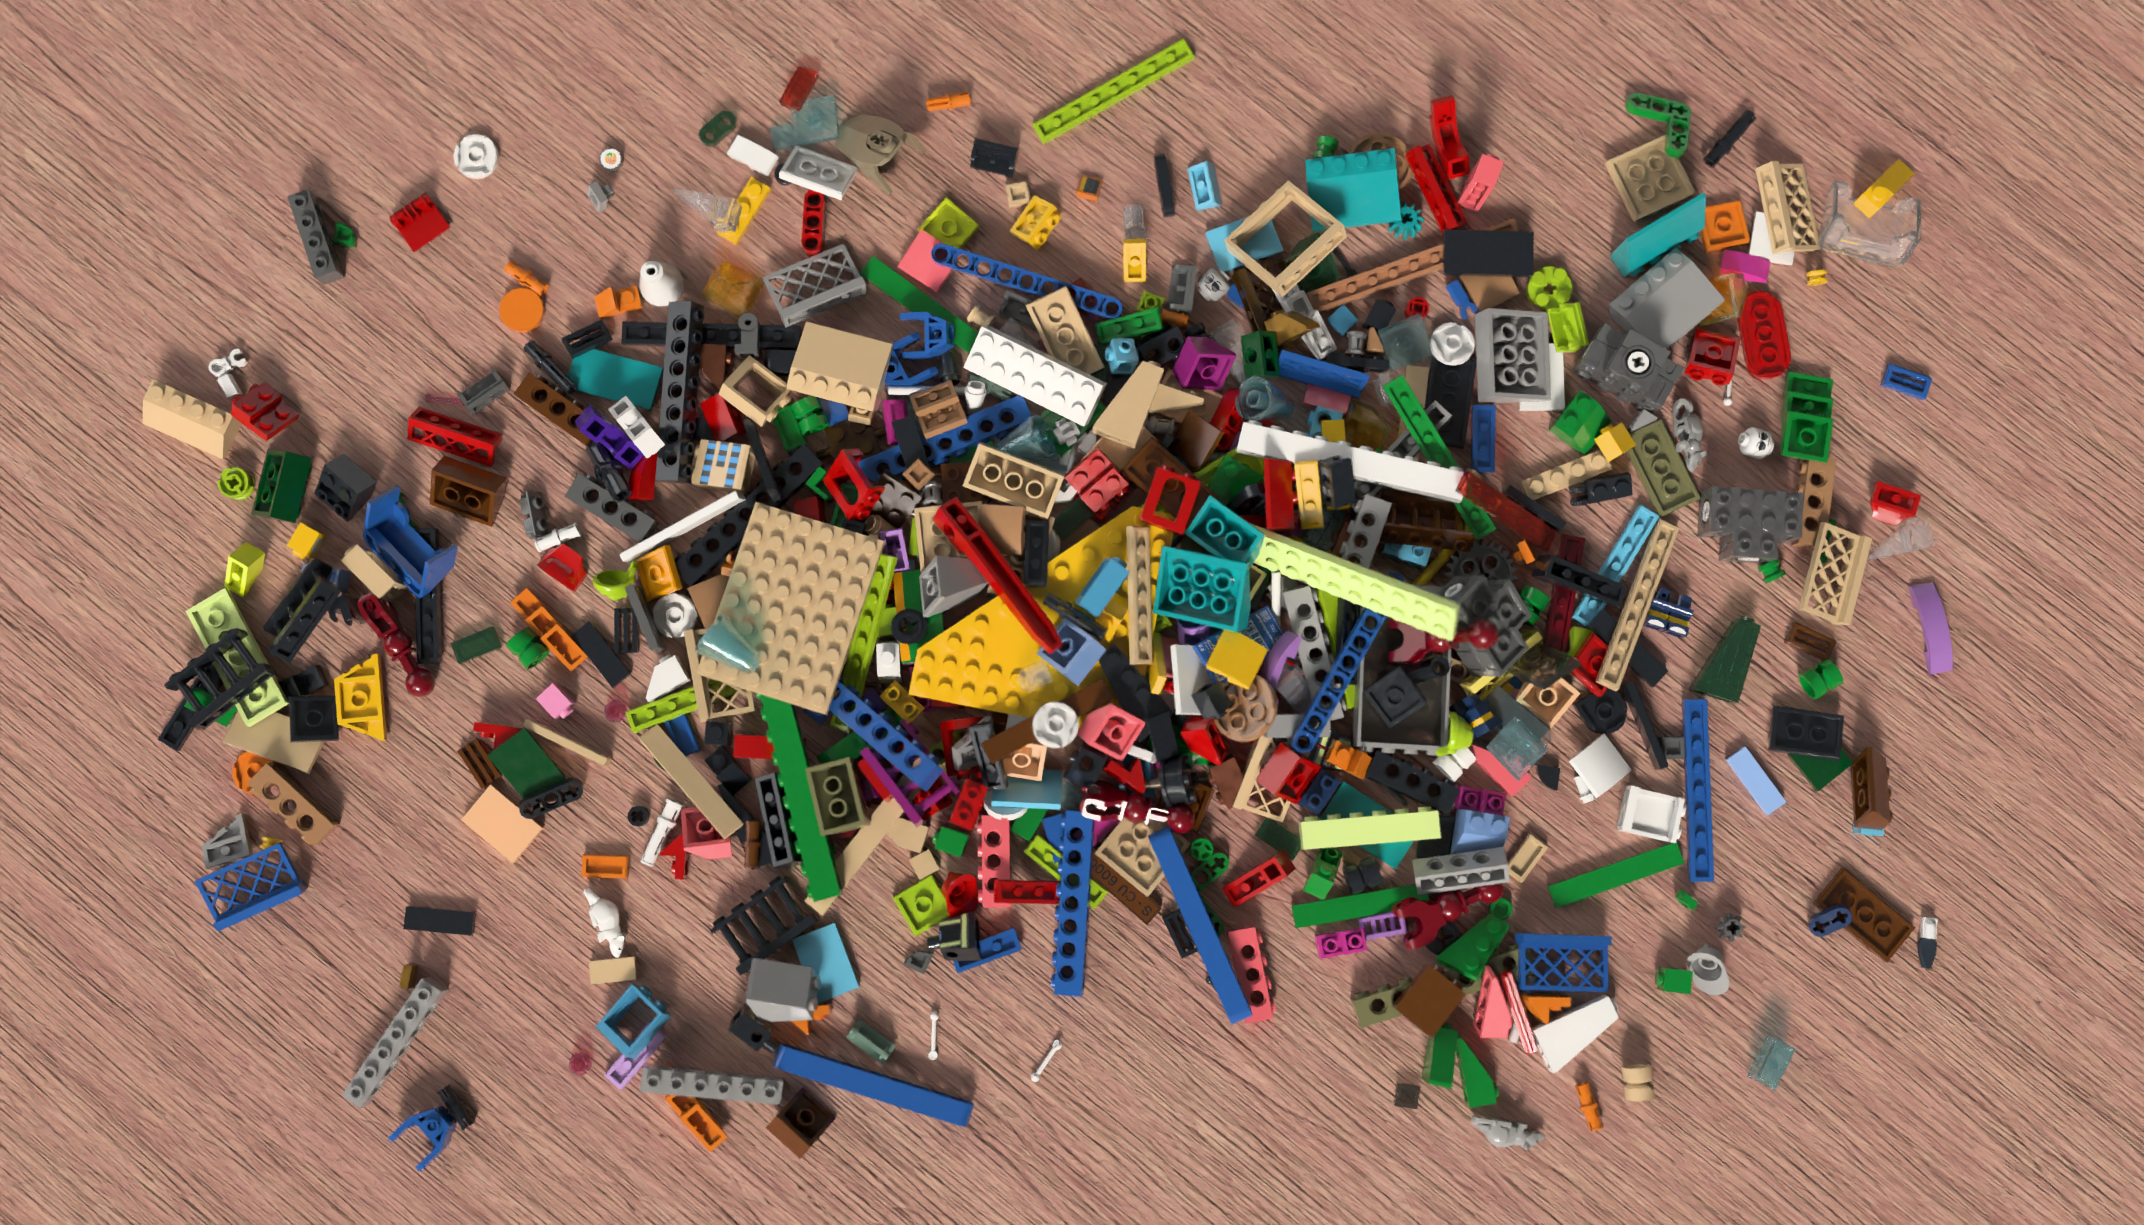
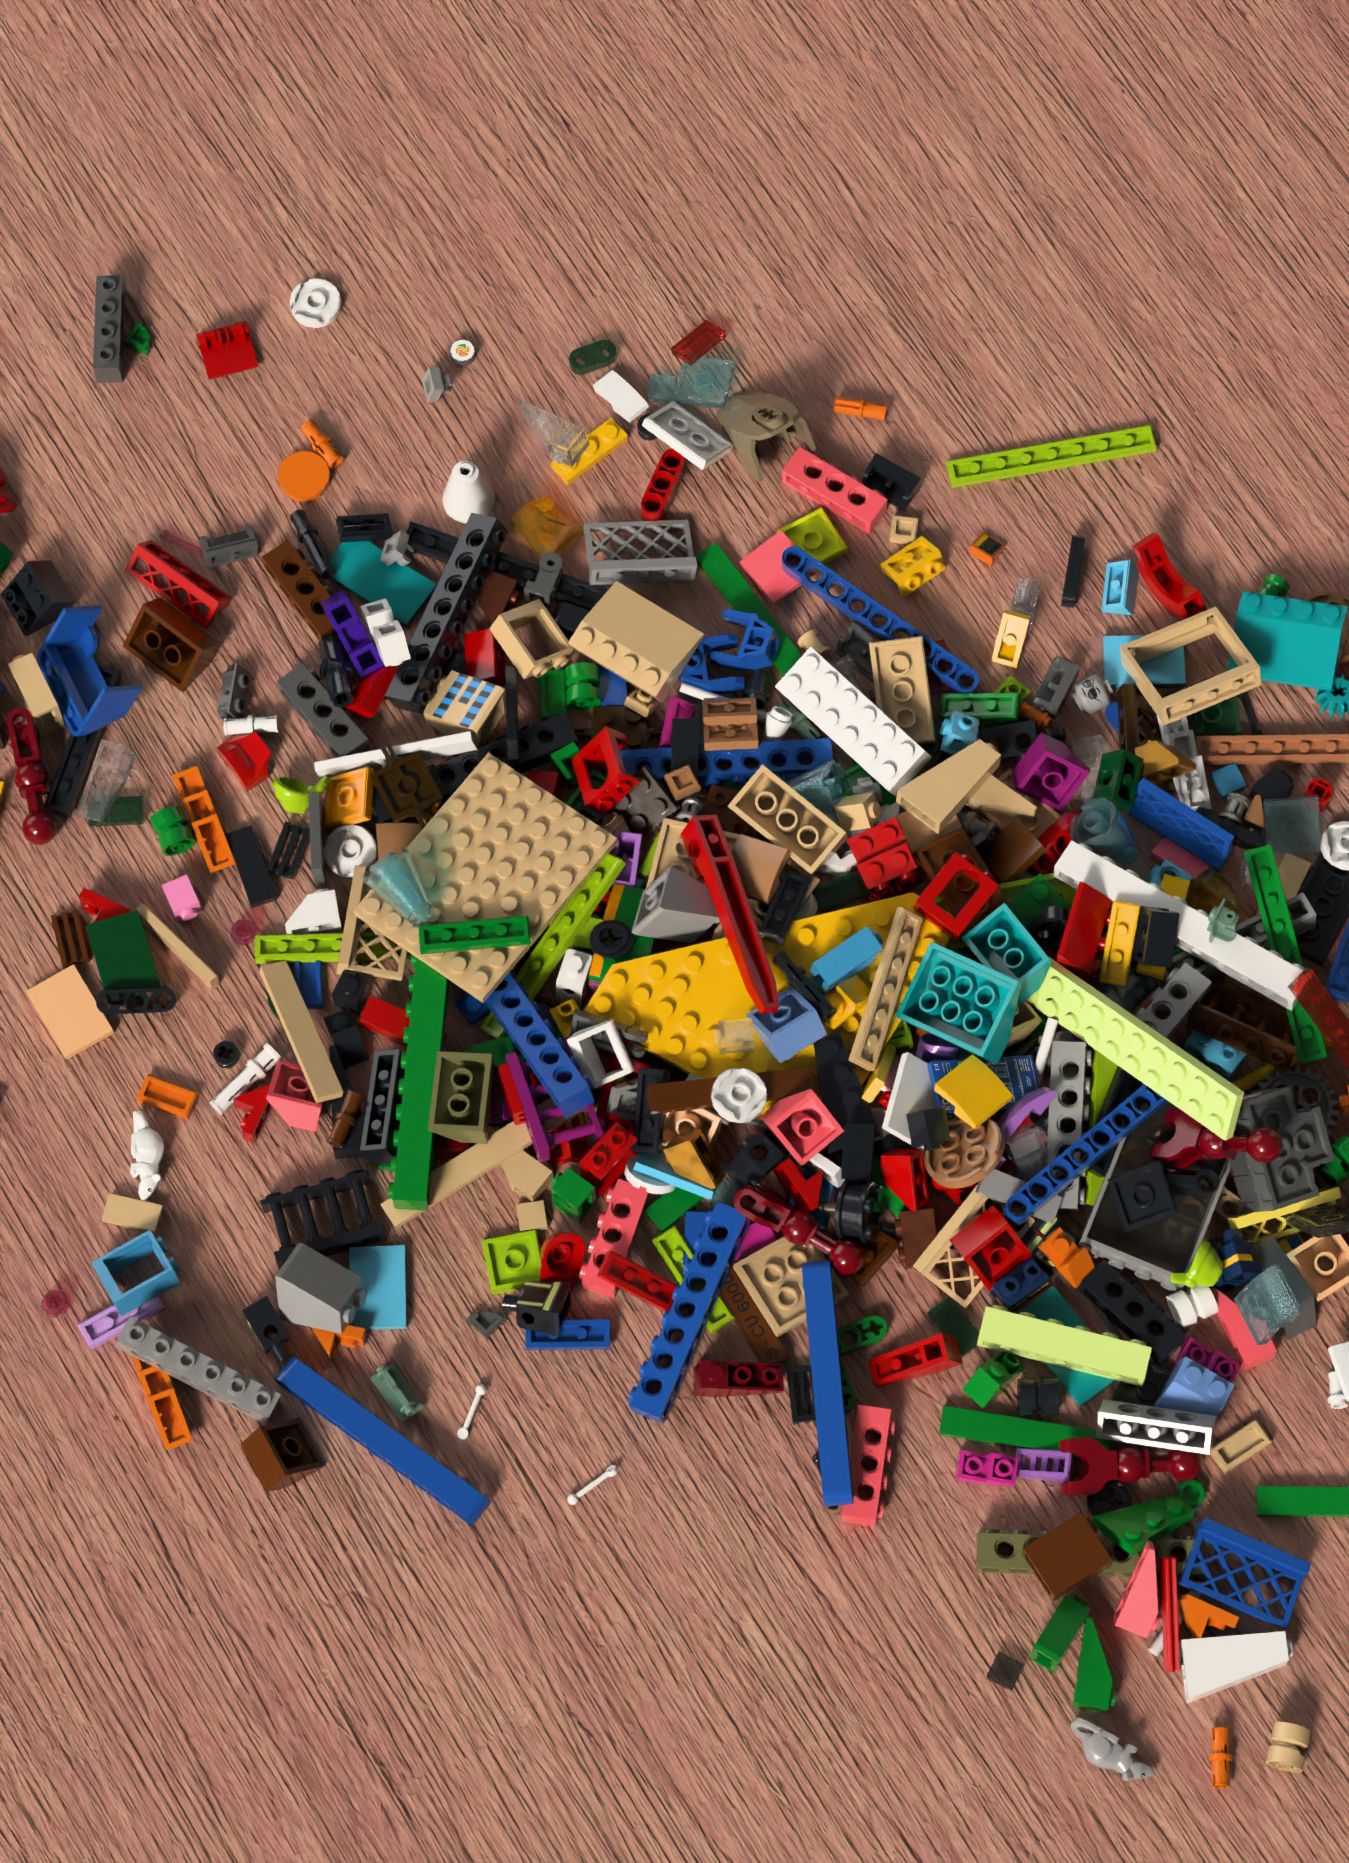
camera: 20 degrees right, 15 degrees down
(458, 626) = (105, 780): none -> clear slope
(618, 302) = (412, 501): orange slope -> none
(618, 350) = (397, 550): none -> light grey tile
(700, 552) = (406, 786): none -> dark brown plate
(800, 664) = (474, 935): none -> green tile
(927, 734) = (587, 1056): none -> white tile
(935, 708) = (601, 1040): none -> dark grey hinge
(982, 194) = (863, 515): none -> coral brick
(1036, 782) = (694, 1159): none -> pearl gold slope
(1065, 452) = (858, 812): none -> tan brick
(1129, 941) = (736, 1378): none -> dark red slope
(1204, 850) = (861, 1300): green wheel -> none
(1240, 171) = (1164, 582): none -> red arch
(1389, 457) = (1222, 923): none -> sand green hinge
(1549, 776) = (1299, 1362): black tile -> none

